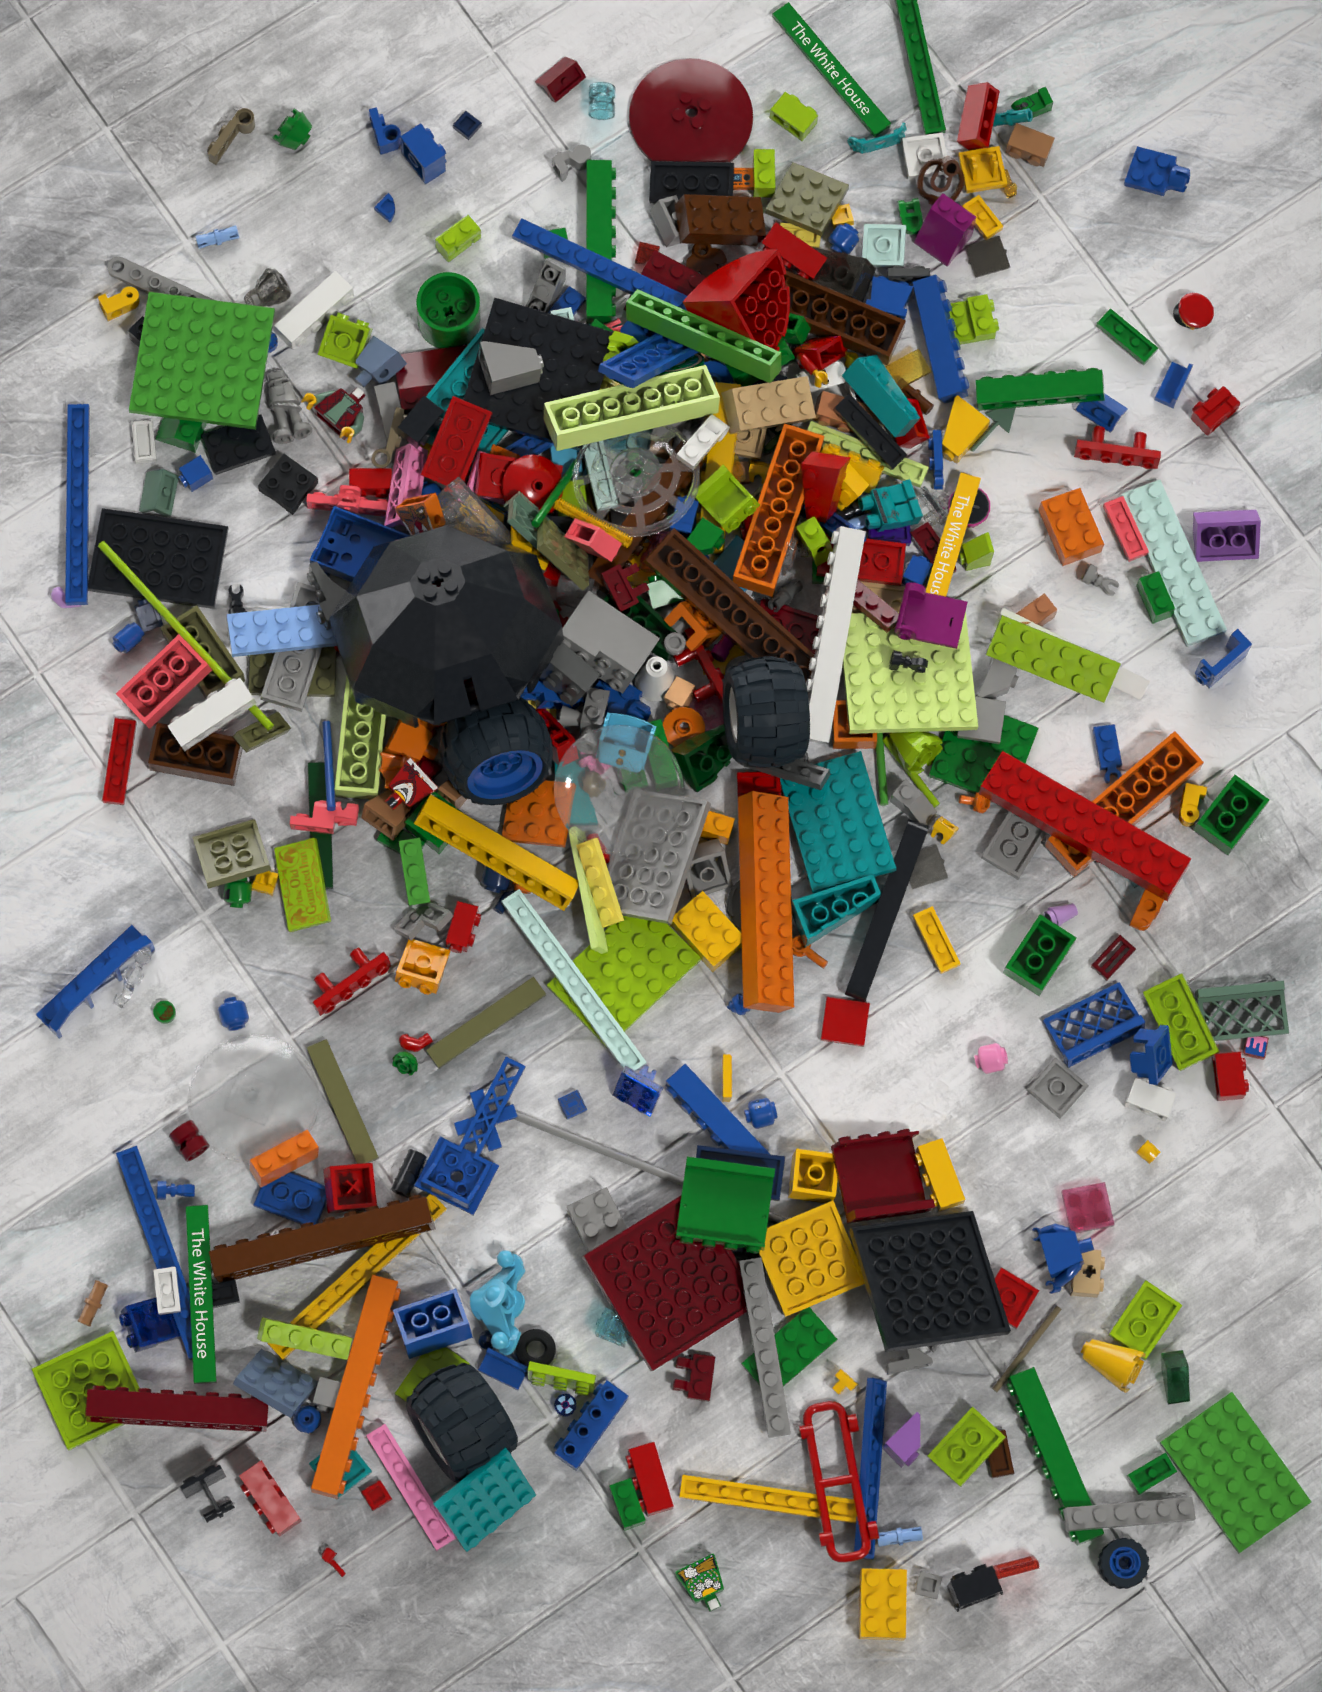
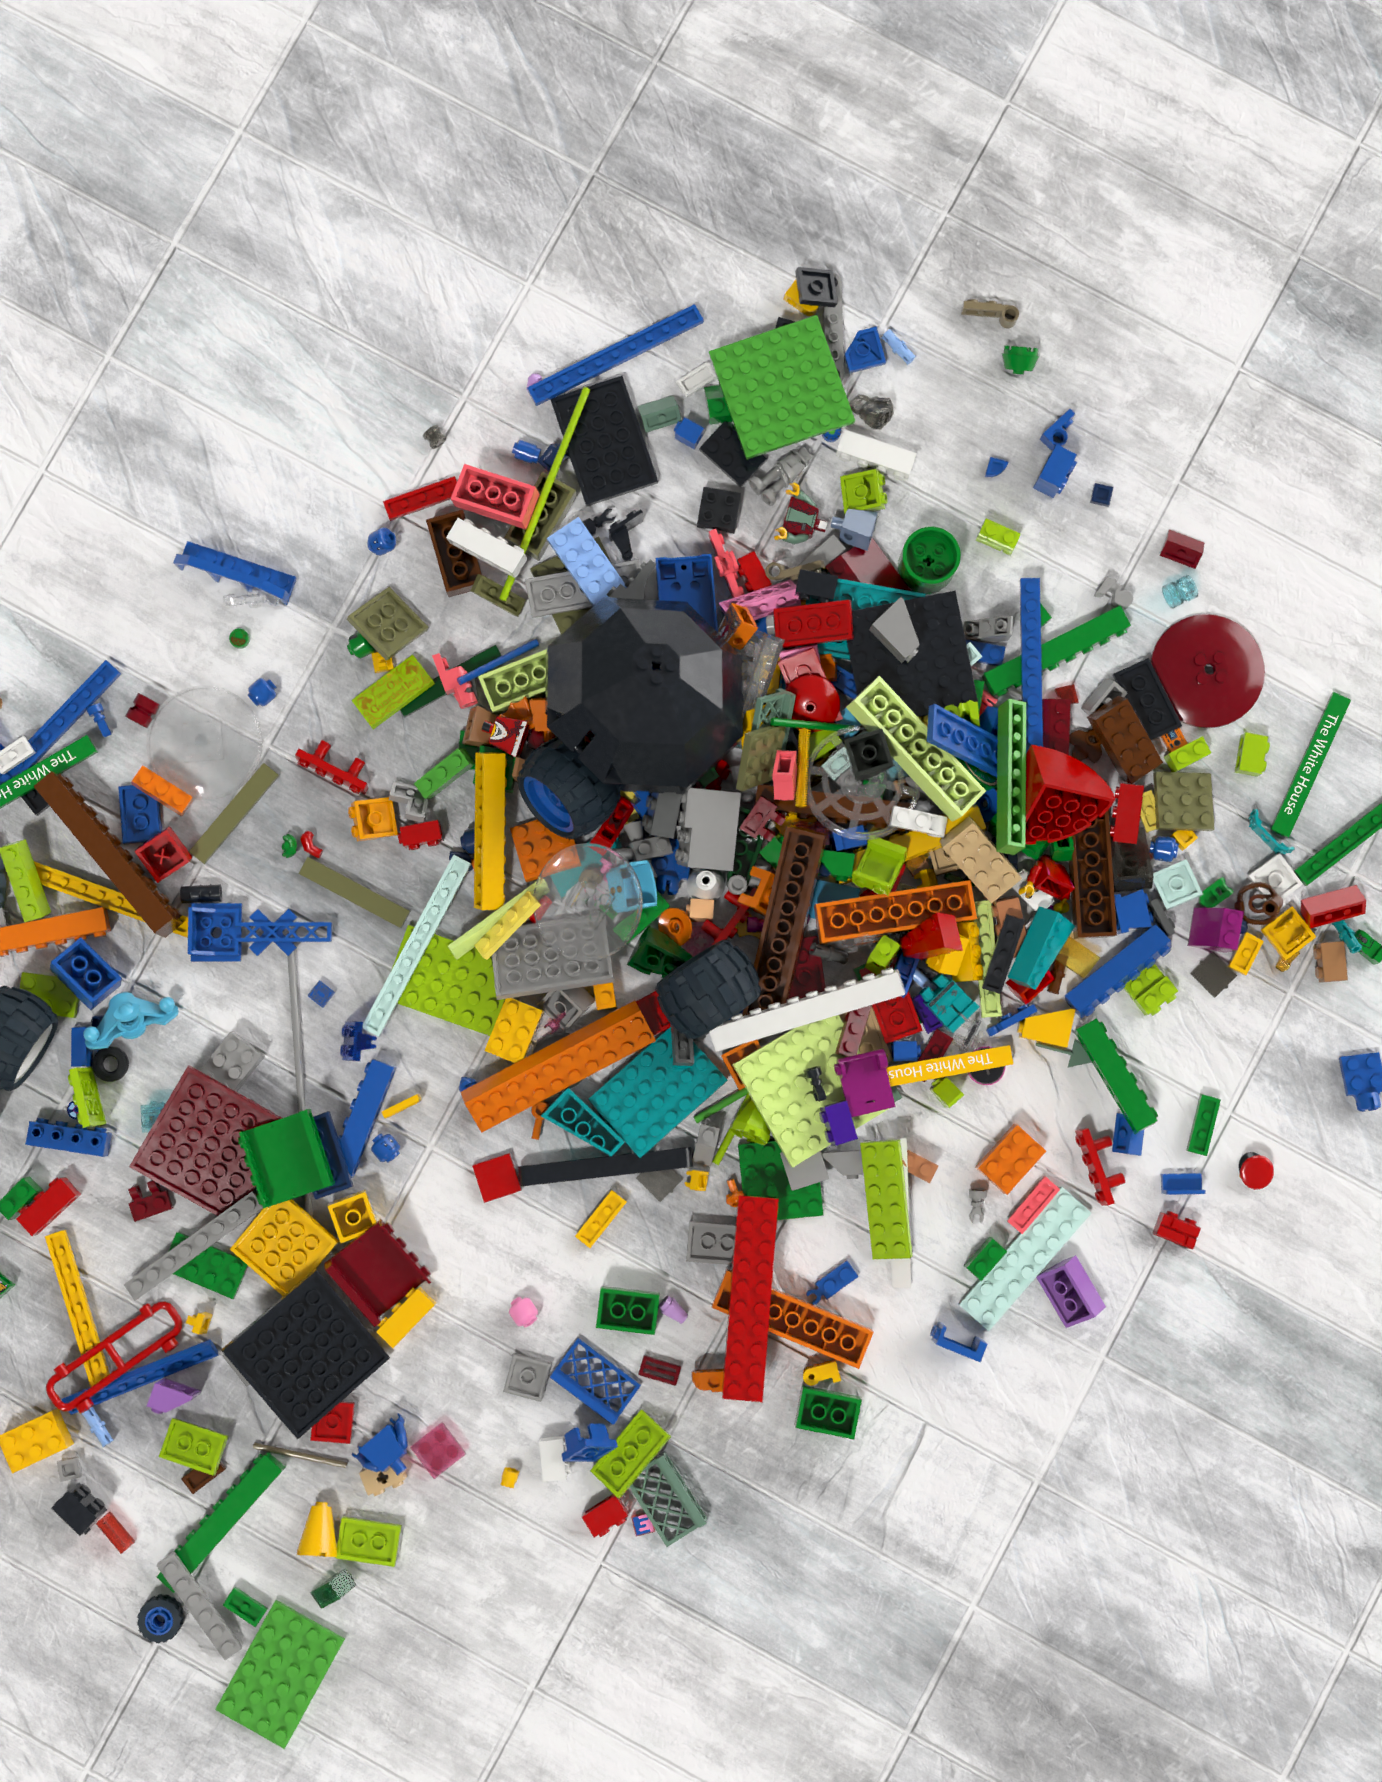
camera: 65 degrees right, 10 degrees up
(63, 718) = (434, 437): none -> clear smoke wheel
(117, 280) = (816, 287): none -> black plate
(143, 820) = (381, 541): none -> blue head
(204, 269) = (865, 351): none -> blue plate
(267, 587) = (619, 533): none -> black plate
(433, 485) = (770, 624): none -> light grey tile
(616, 450) = (868, 754): none -> pearl dark grey slope
(719, 891) = (554, 1023): none -> clear pink hand
(957, 661) = (838, 1123): none -> dark purple brick

